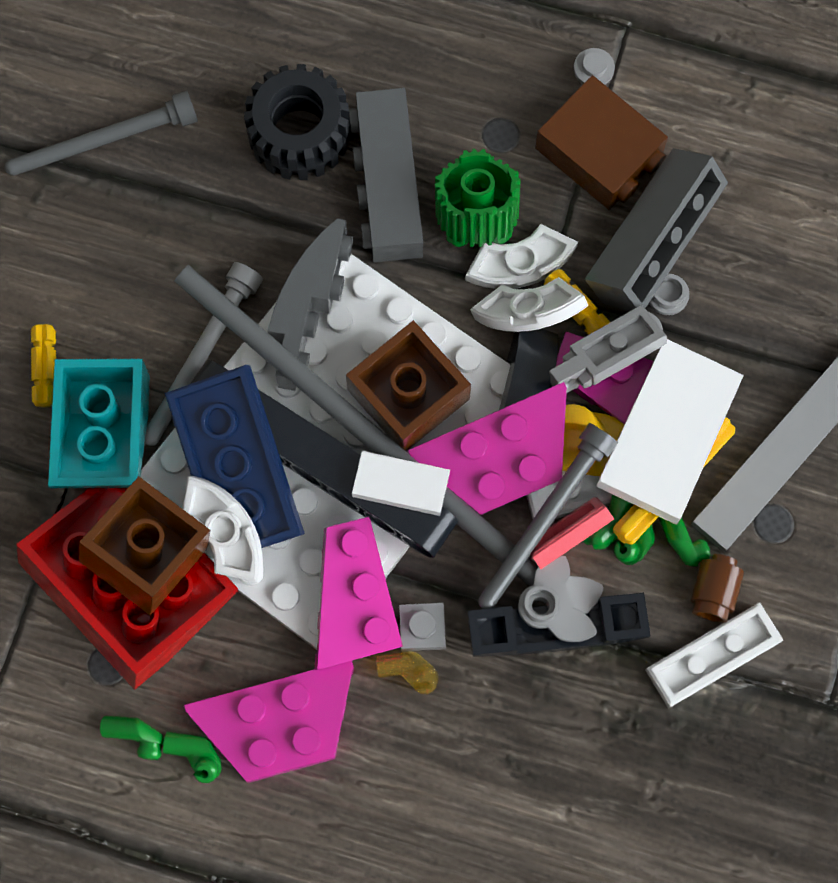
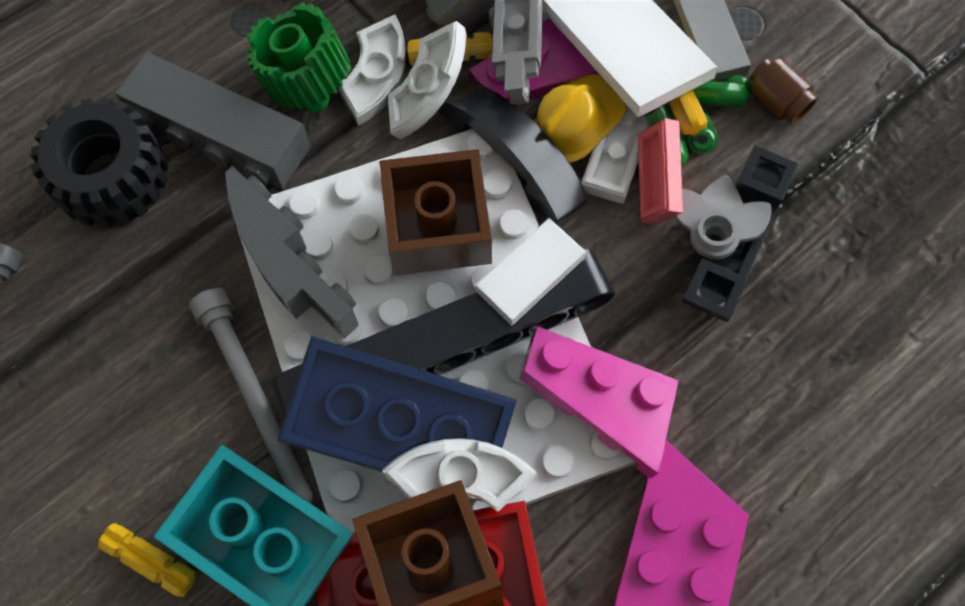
camera: 55 degrees left, 5 degrees down
(338, 408) = (394, 288): dark grey piece -> none
(411, 667) = (700, 388): clear yellow arm -> none
(422, 627) = (665, 351): light grey plate -> none
(503, 452) = (553, 170): dark pink wing -> none
(593, 448) = (603, 91): dark grey piece -> none
(714, 655) = (837, 134): white tile -> none

